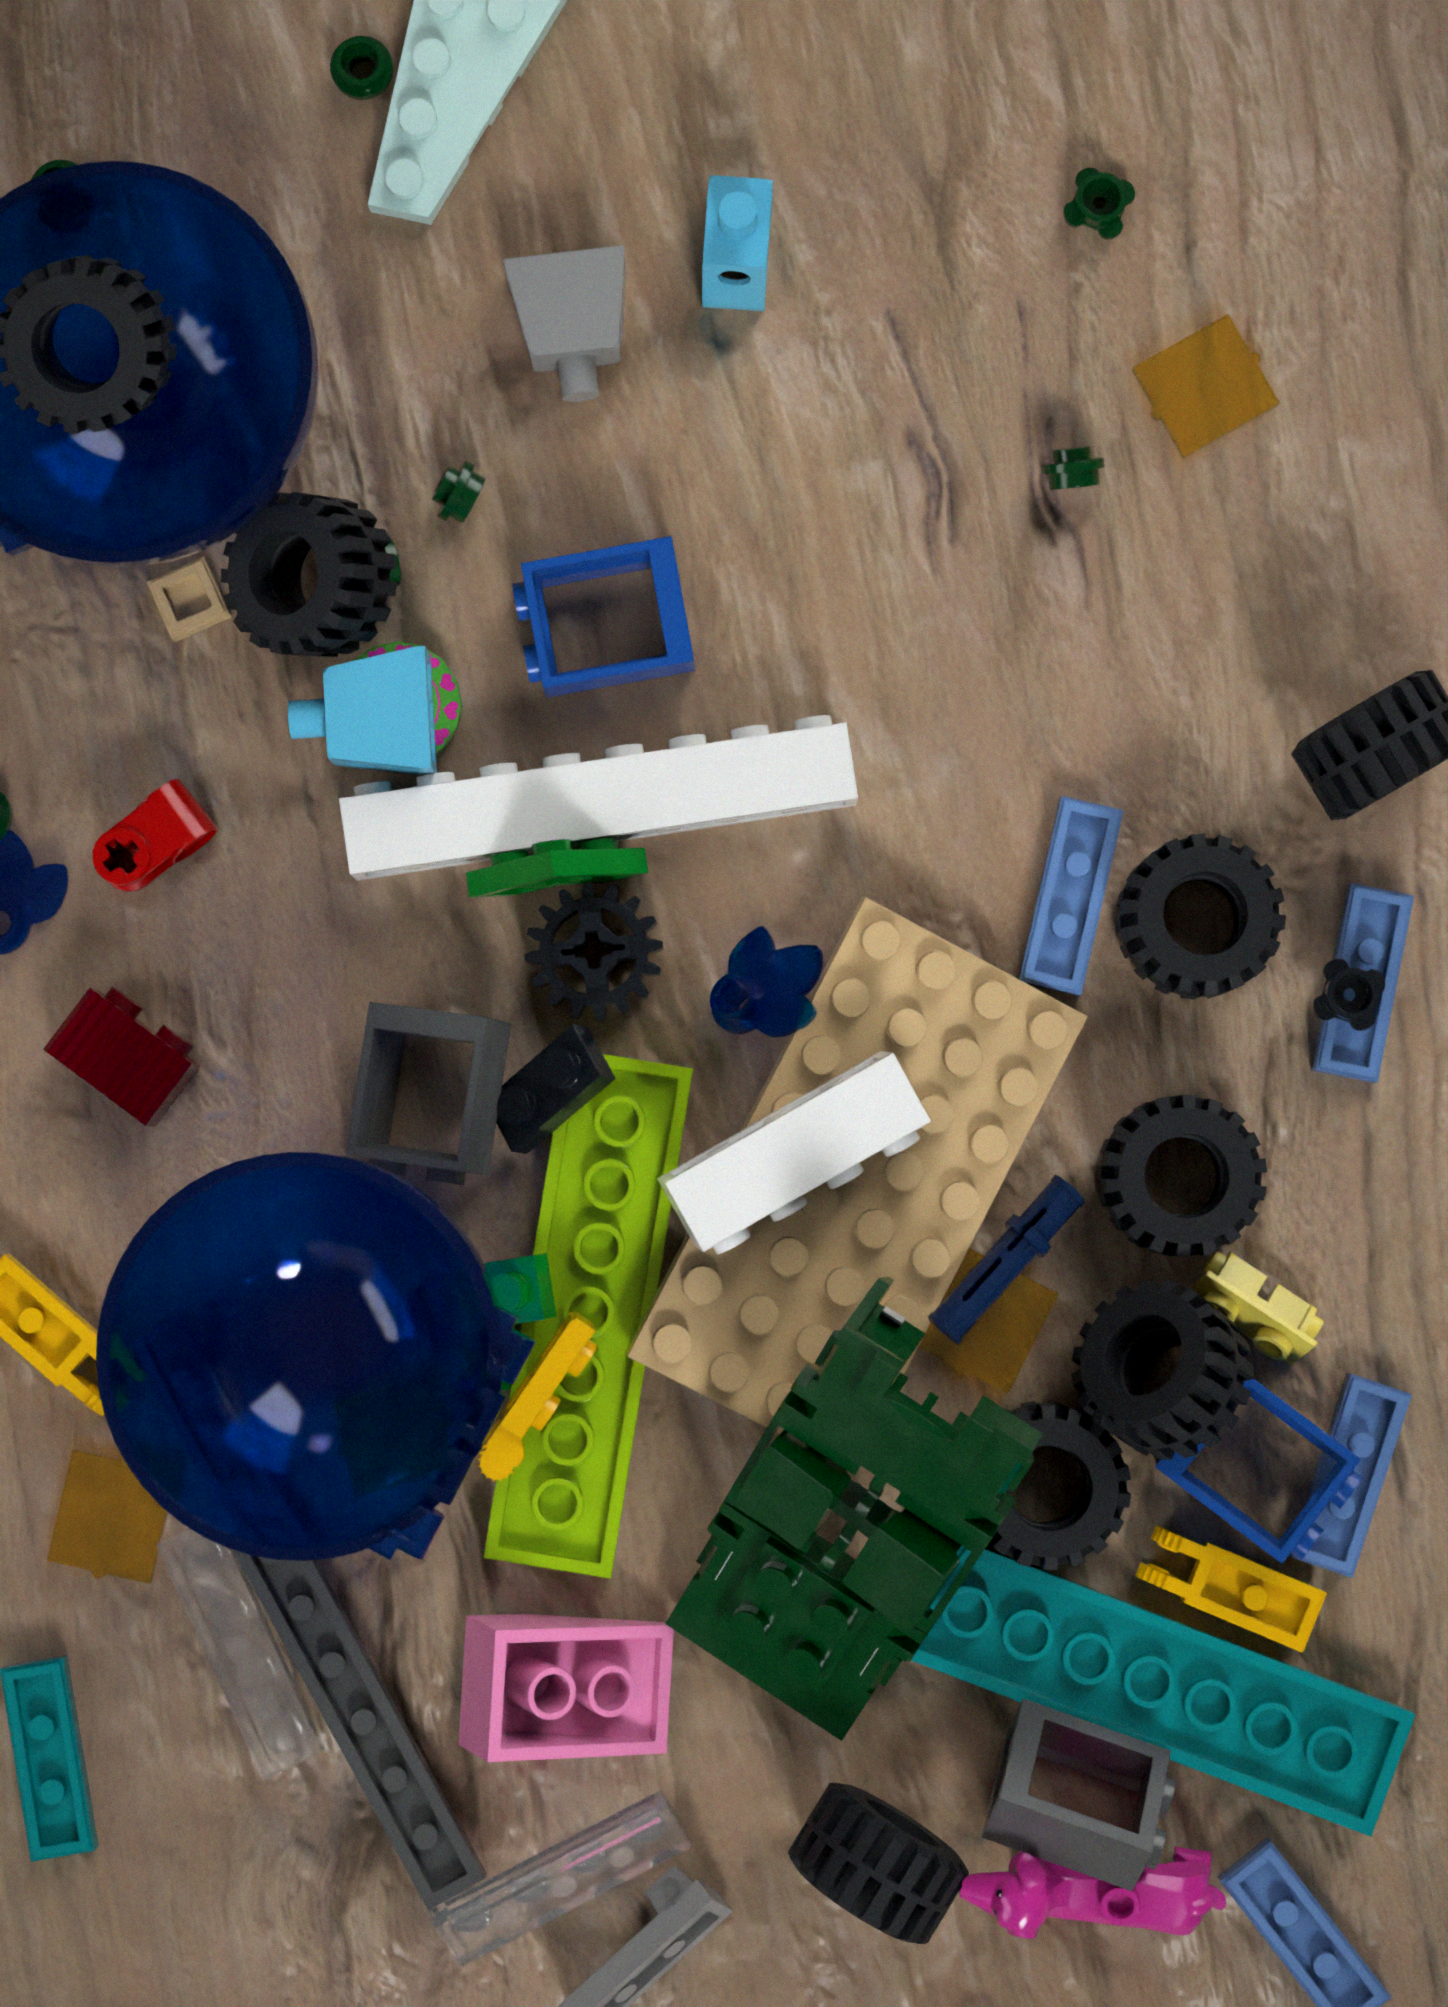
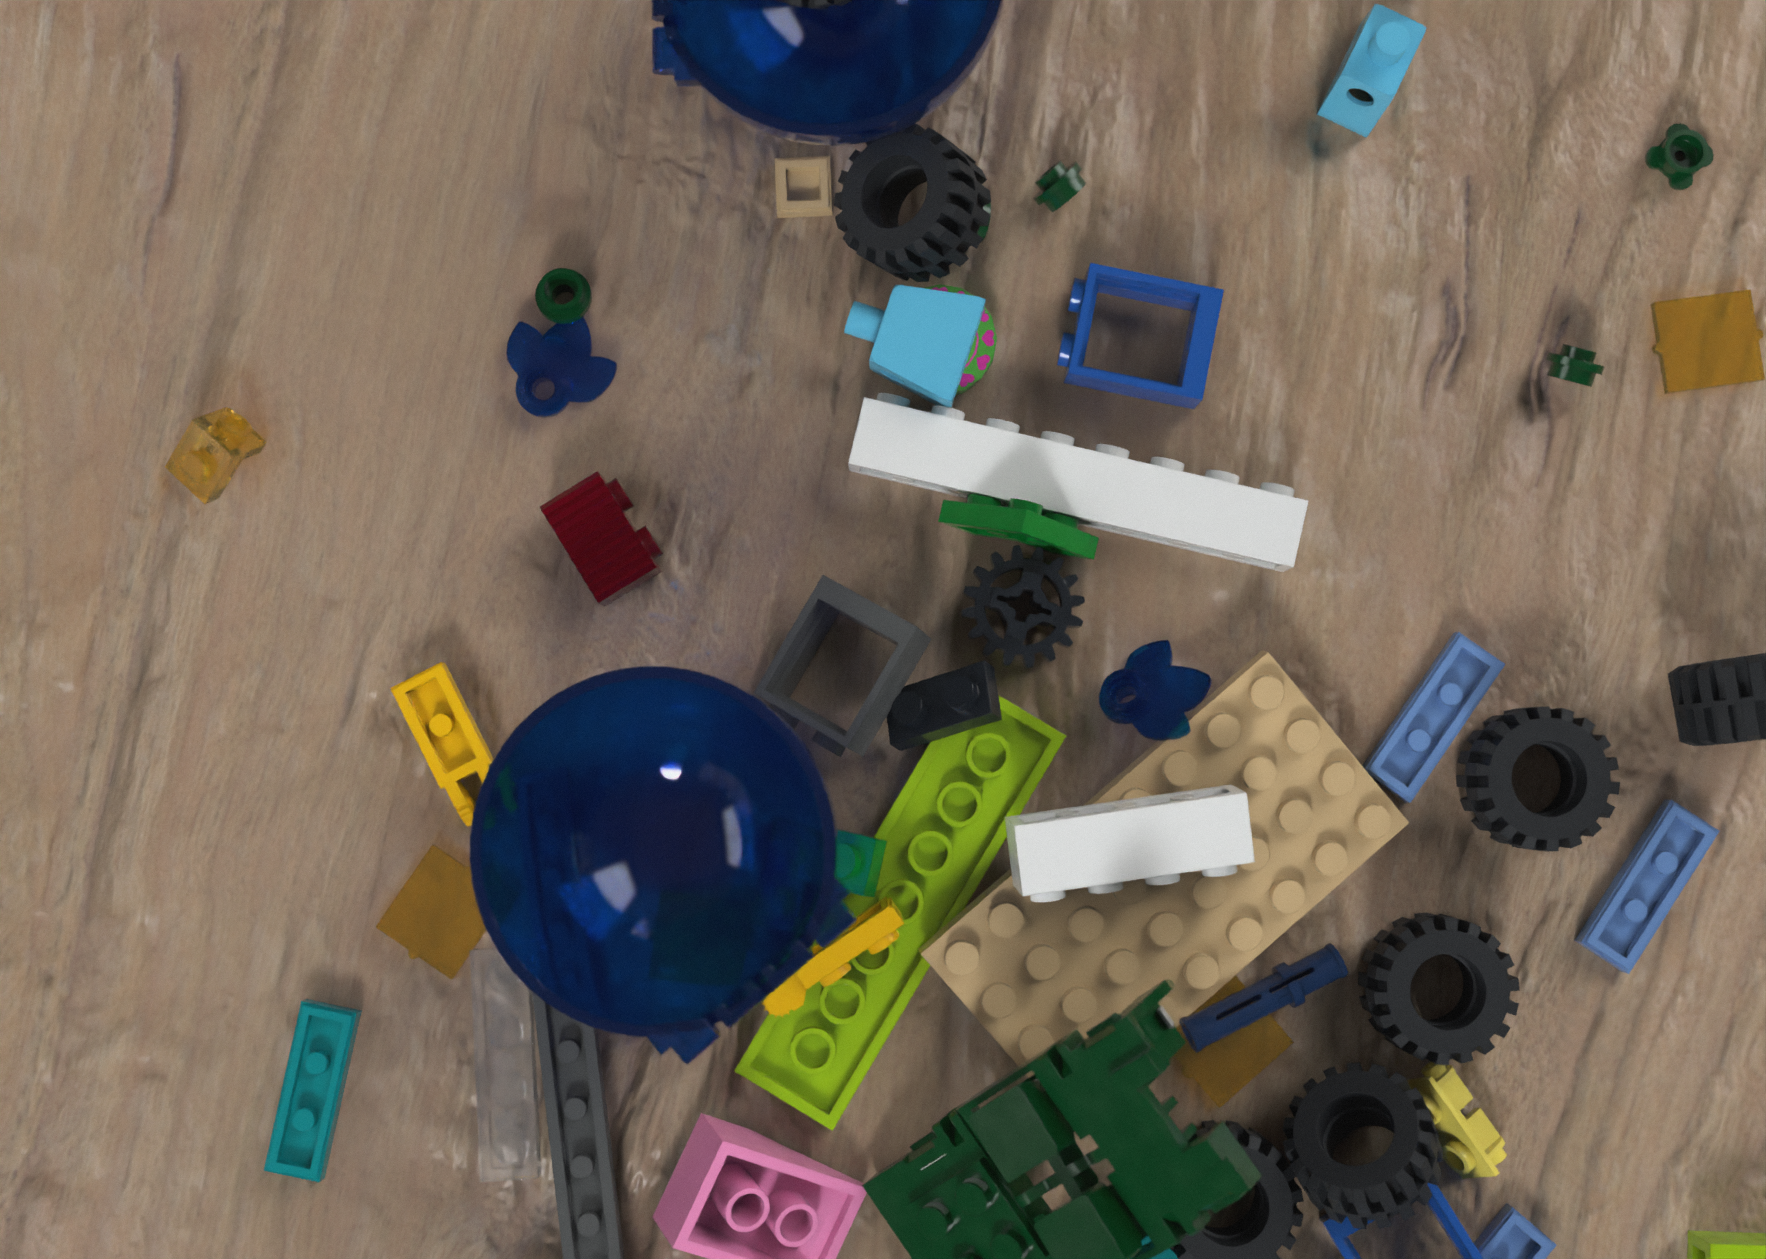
camera: 20 degrees right, 0 degrees up
(164, 830) = (710, 368): red piece -> none
(571, 313) = (1209, 74): light grey torso -> none
(1366, 986) = (1652, 898): black plate -> none

